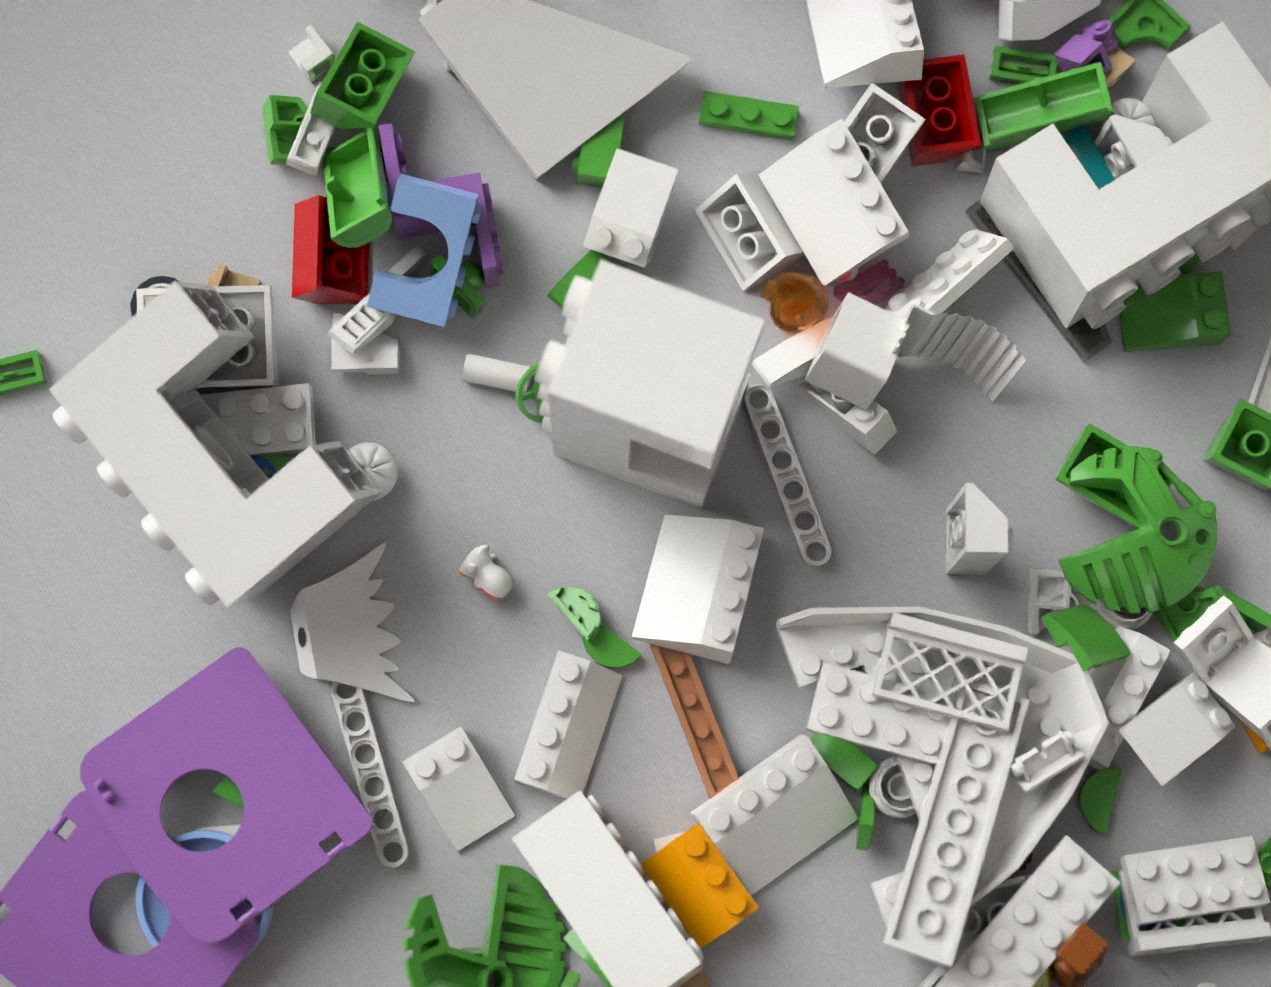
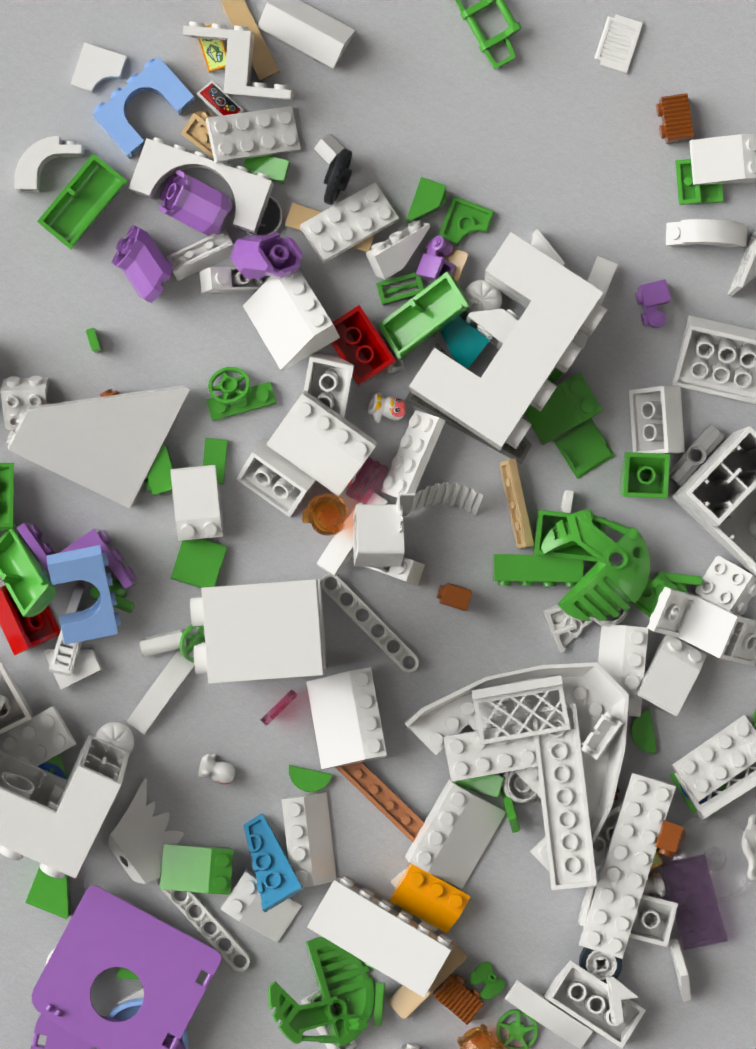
camera: 20 degrees left, 10 degrees up
(185, 630) = (51, 894): none -> bright green slope
(396, 693) = (196, 869): none -> bright green slope
(461, 437) = (160, 692): none -> white slope
(500, 738) = (272, 868): none -> dark azure wing
(580, 609) = (282, 765): tile -> none
(613, 528) = (279, 707): none -> clear pink tile
(689, 162) = (215, 454): none -> bright green tile
(742, 86) = (229, 386): none -> bright green wheel
(920, 487) = (454, 596): none -> dark orange brick
(942, 207) = (389, 407): none -> white animal
(975, 533) = (501, 618): white slope -> none
(1048, 506) = (536, 569): none -> bright green brick
(1057, 408) = (516, 503): none -> tan tile
(1088, 635) = (593, 644): bright green slope -> none
(1130, 431) = (567, 501): none -> white tile
(1179, 381) = (584, 448): none -> bright green piece

